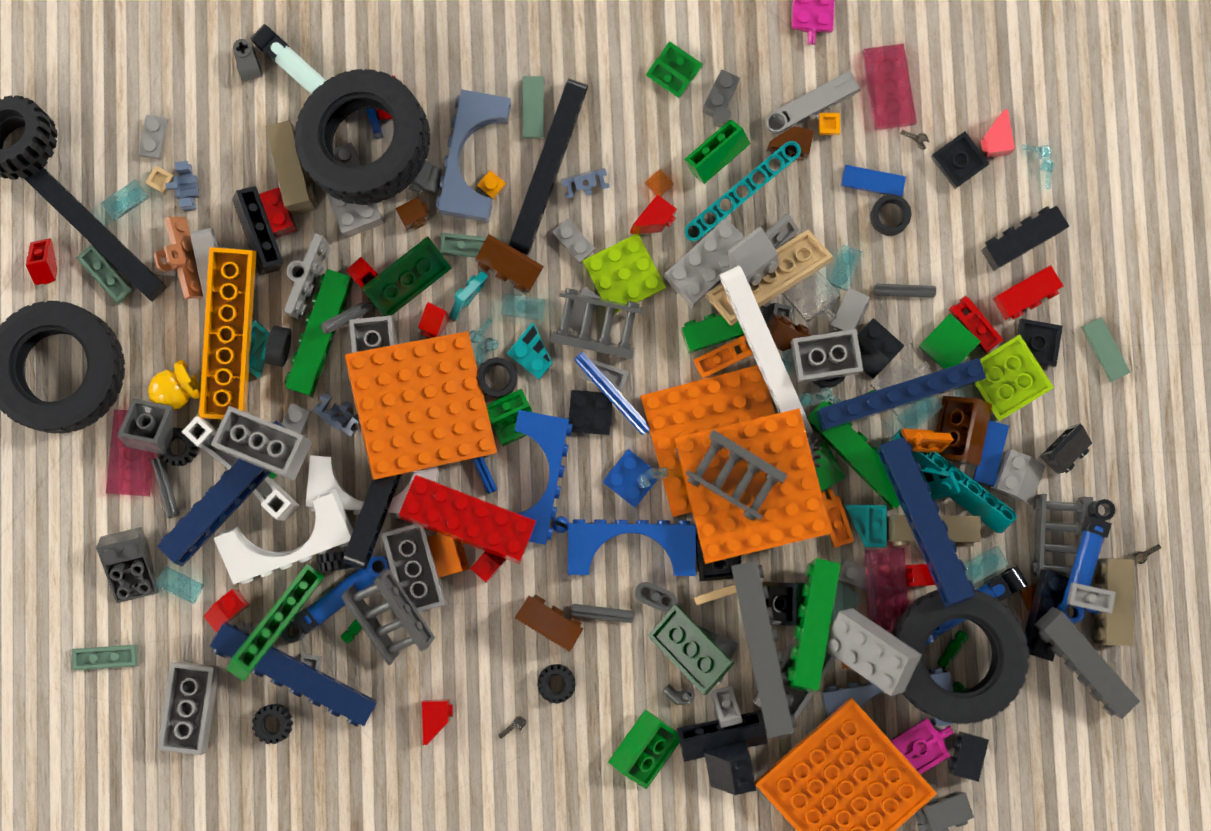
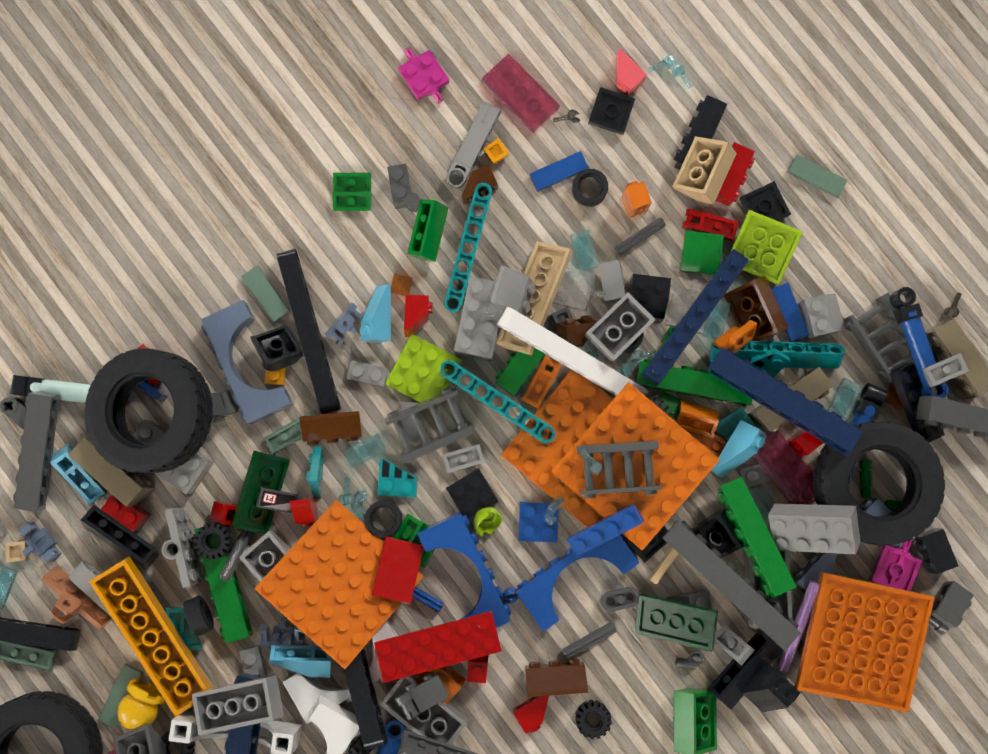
camera: 30 degrees left, 0 degrees up
(142, 377) = (109, 712): none -> sand green tile
(238, 104) = (36, 451): none -> dark grey brick
(258, 150) = (78, 478): none -> medium azure slope
(331, 278) = (204, 549): none -> black tyre
(342, 449) = (301, 659): none -> medium azure slope
(413, 213) = (231, 439): reddish brown brick -> none
(414, 293) = (275, 500): none -> slope
(425, 551) = (422, 695): none -> dark grey hinge
(478, 430) = (397, 570): none -> red tile
(507, 638) = (531, 713): none -> red slope
(510, 162) = (277, 348): none -> black slope
(587, 444) = (486, 520): none -> lime hair
(612, 393) = (478, 469): axle -> none
(616, 198) = (377, 317): none -> medium azure slope
(671, 335) = (493, 393): none -> teal beam
(686, 522) = (605, 529): none -> blue plate
(716, 459) = (595, 467): none -> clear light blue hand
(782, 231) = (518, 256): light grey plate -> none
(802, 729) = (801, 619): none -> lavender axle
(838, 487) = (697, 418): none -> orange panel
(857, 538) = (741, 446): none -> medium azure slope
(924, 253) = (636, 199): none -> orange brick
(1005, 270) = (705, 169): none -> tan slope
(1066, 449) = (843, 270): black slope -> none

